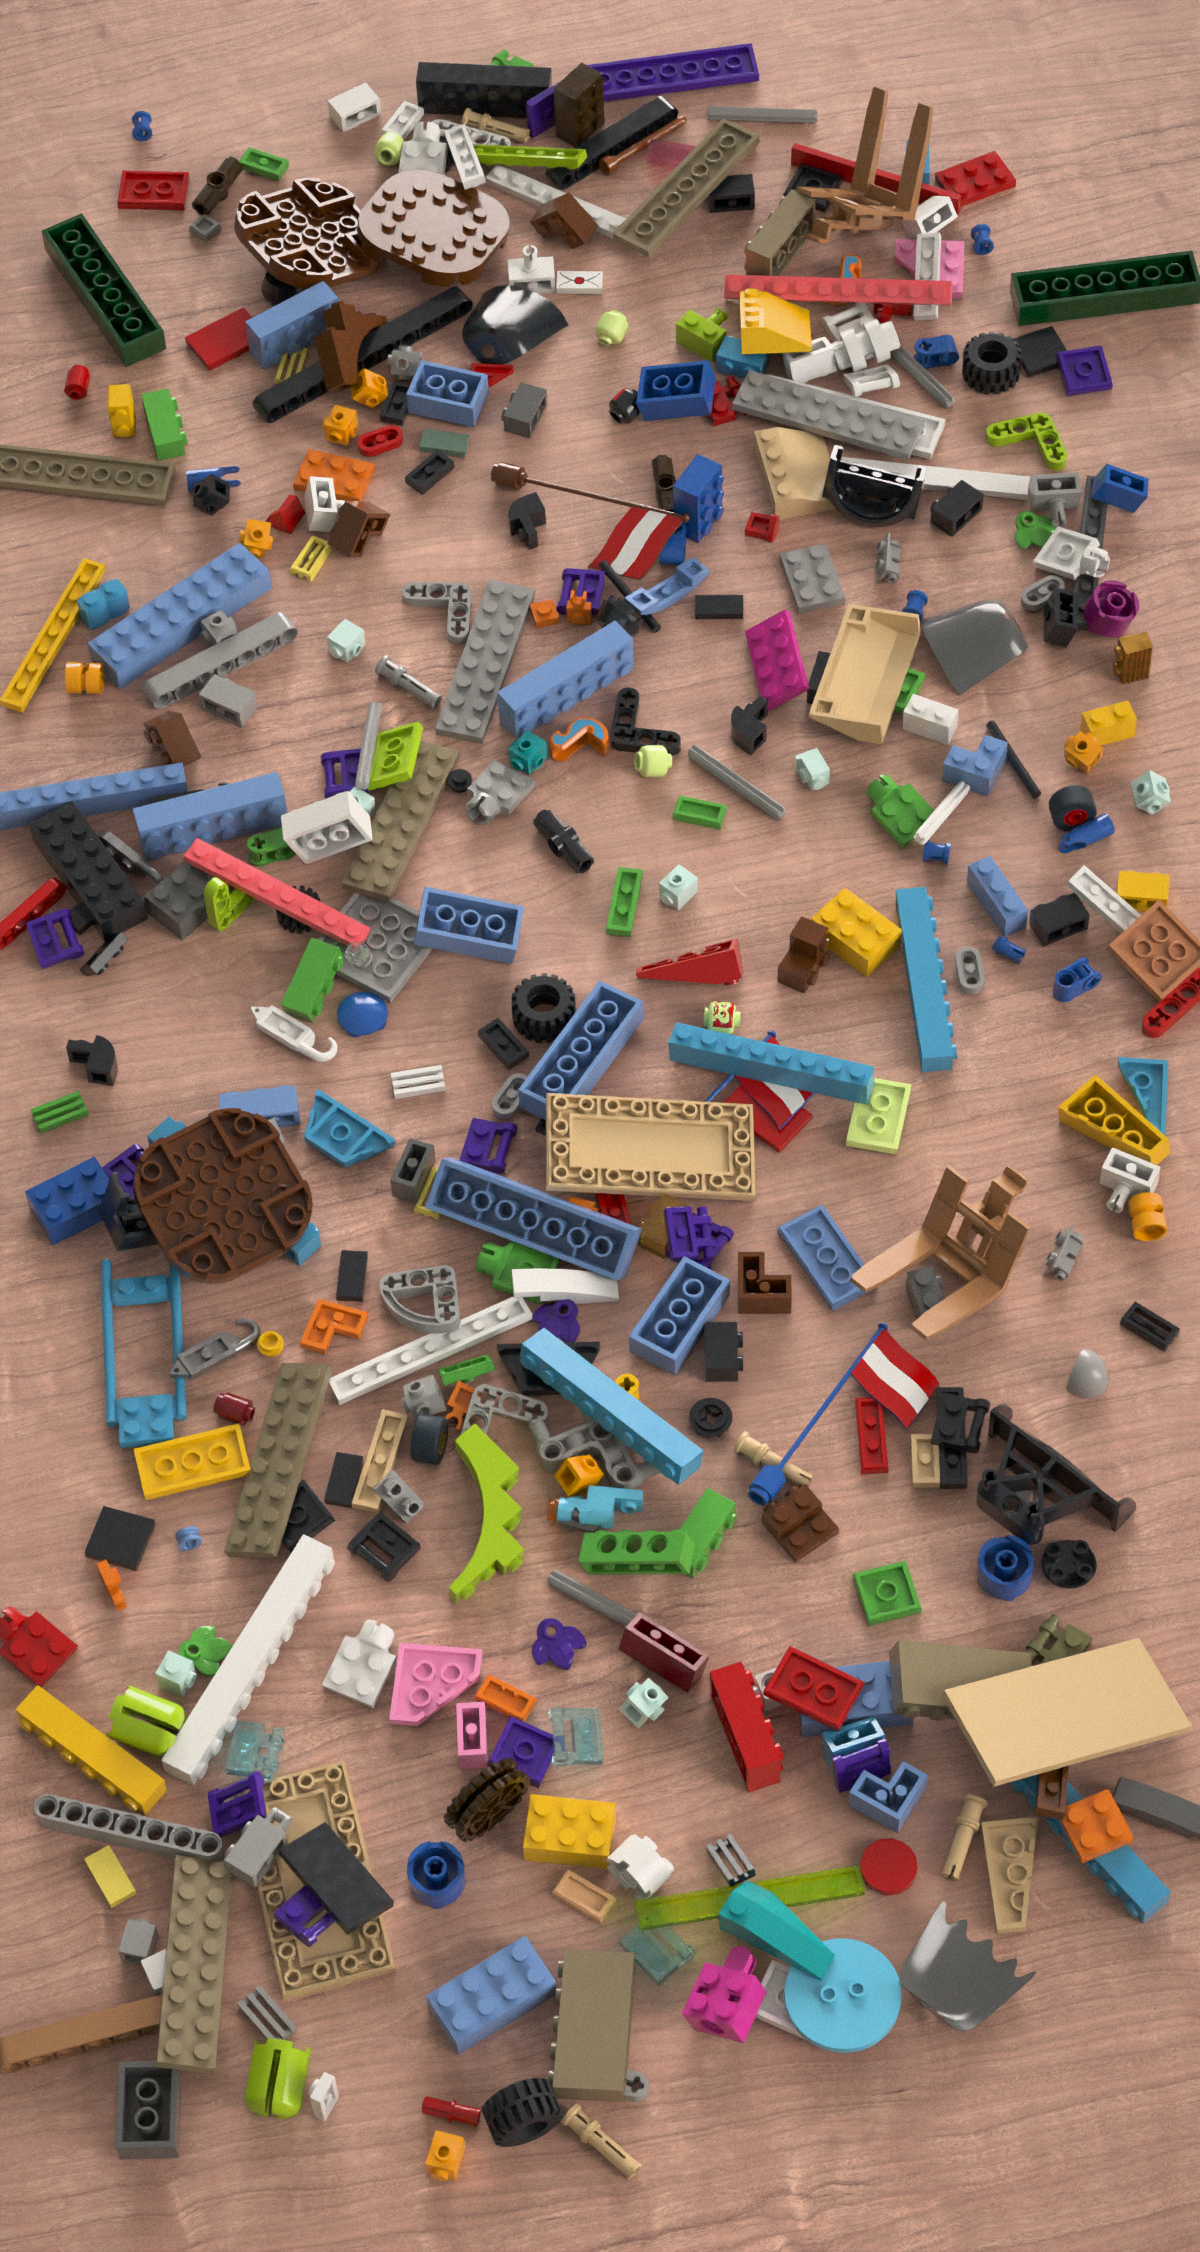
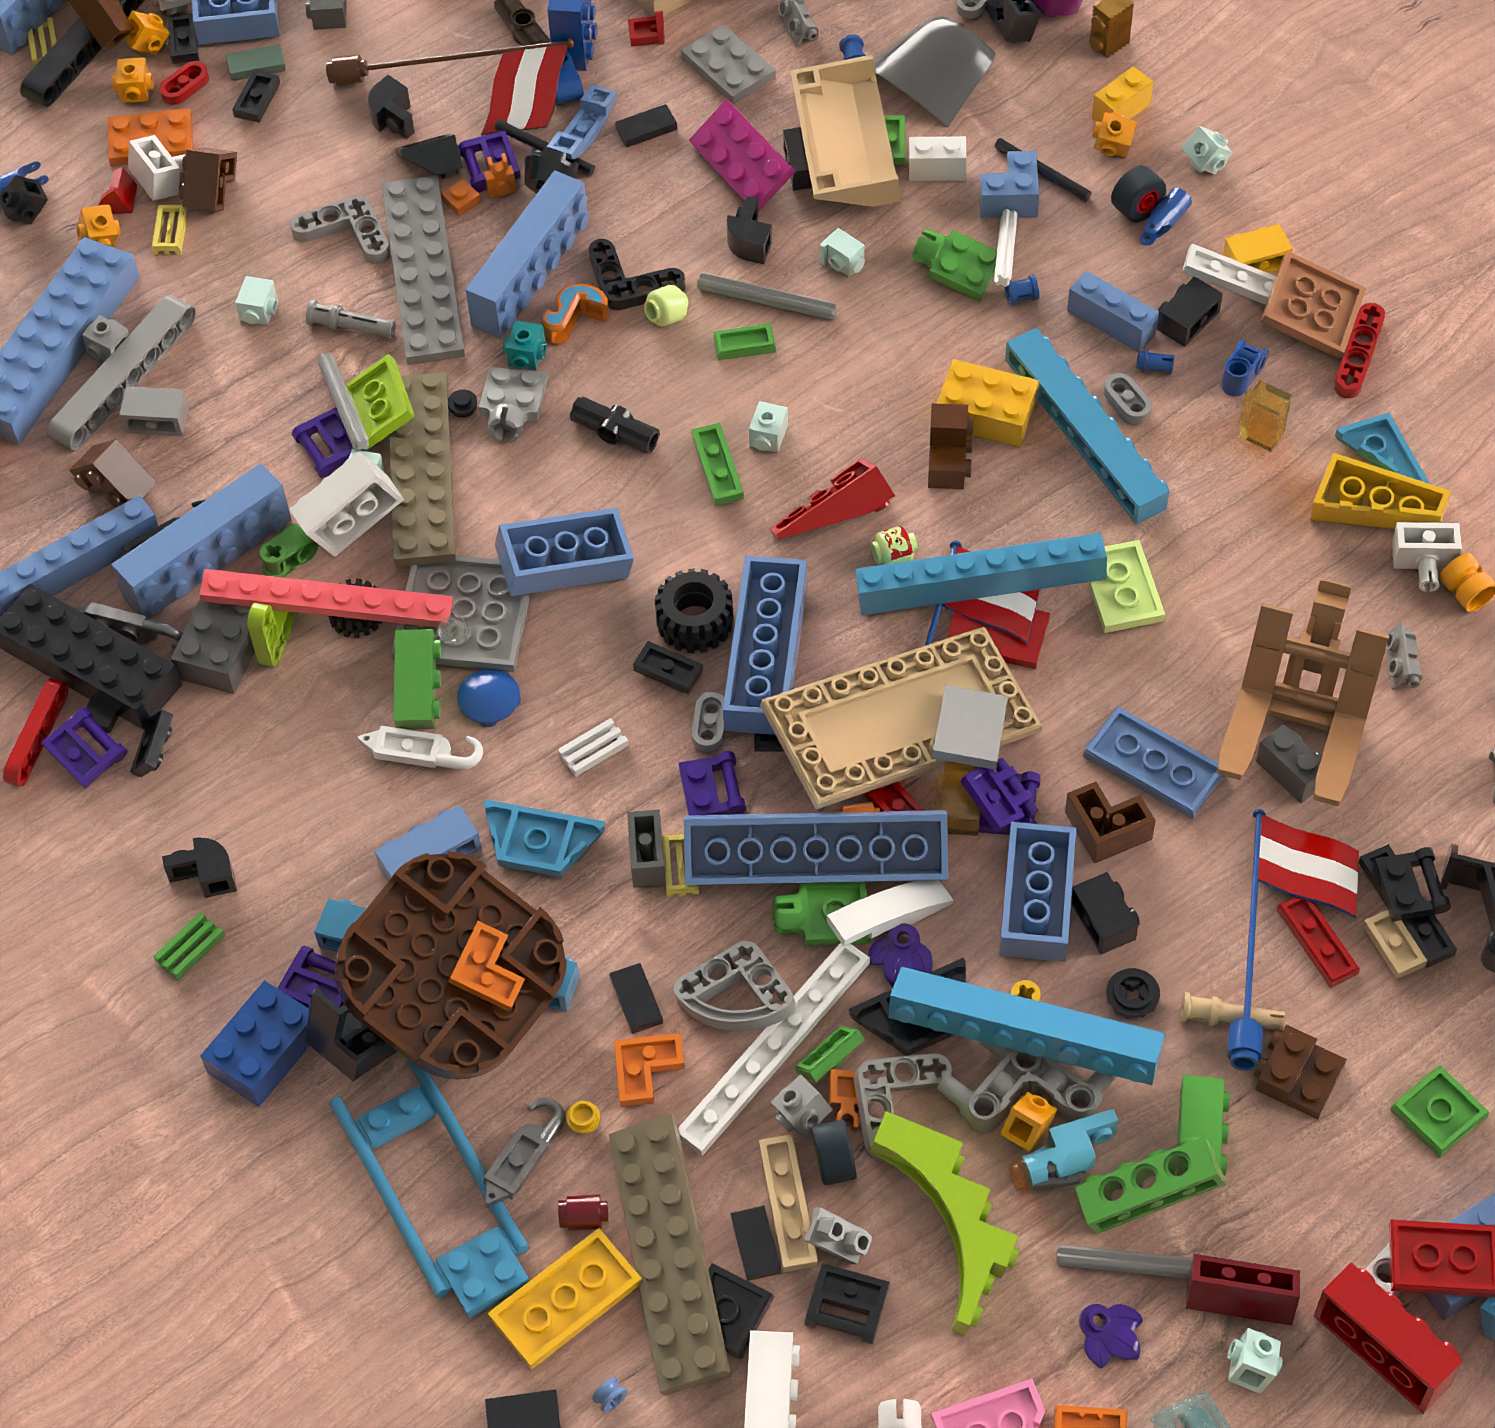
camera: 25 degrees left, 0 degrees up
(238, 1207) = (479, 973): none -> orange plate
(538, 571) = (435, 155): none -> black slope
(692, 1174) = (970, 727): none -> light grey tile
(1063, 1024) = (1264, 415): none -> clear yellow brick

